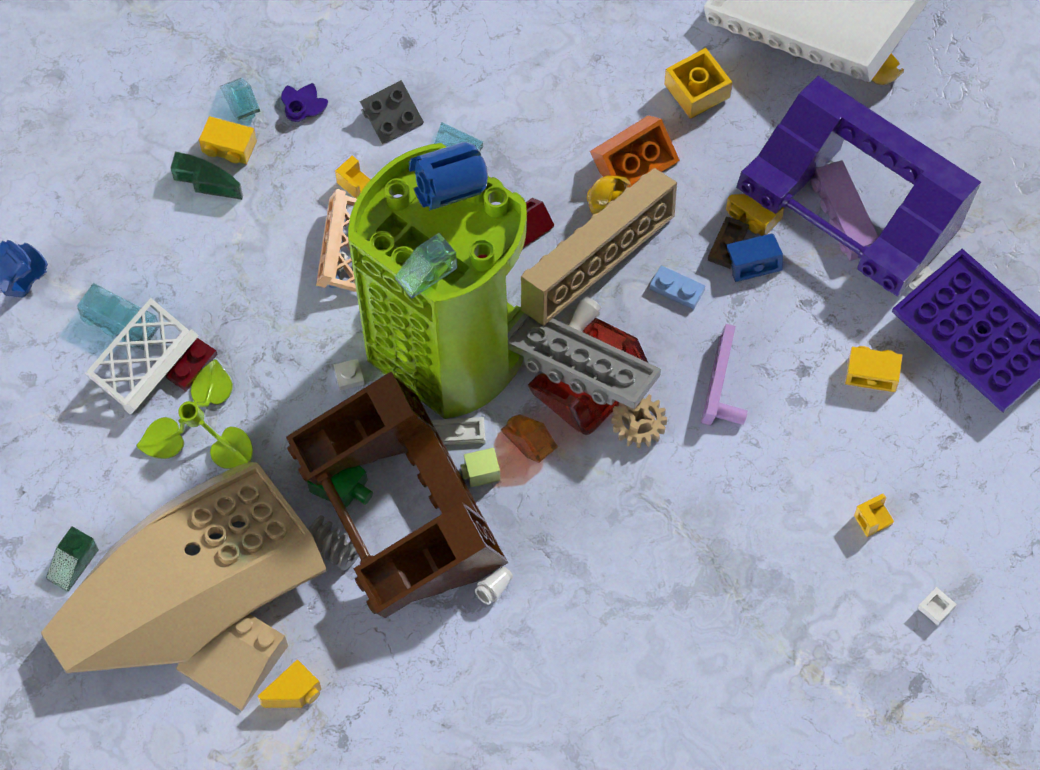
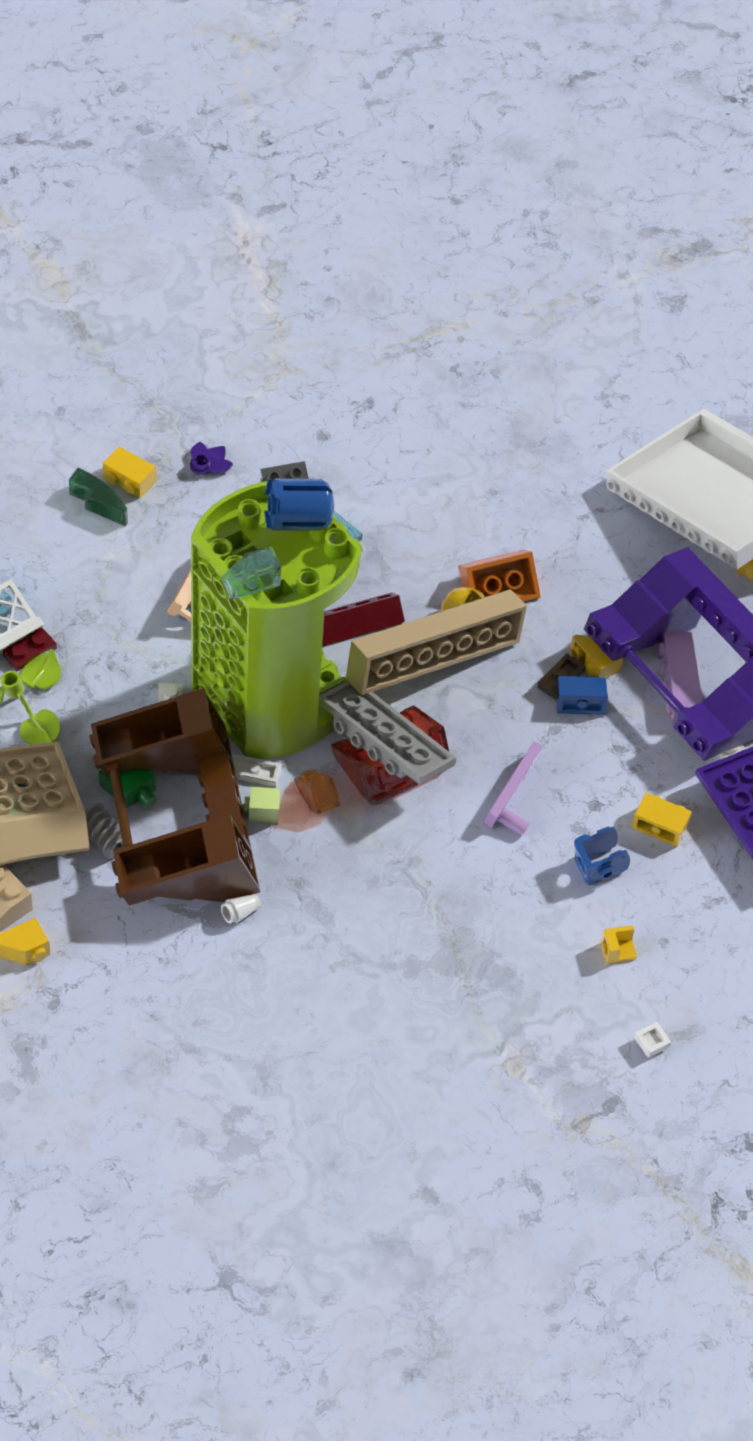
camera: 10 degrees right, 10 degrees down
(240, 99) = (153, 442): clear light blue slope -> none
(585, 312) = (407, 698): white cone -> none
(646, 428) = (425, 804): tan gear -> none
(677, 287) = (500, 702): light blue plate -> none
(698, 83) = (578, 534): yellow brick -> none
(834, 442) = (600, 843): none -> blue piece

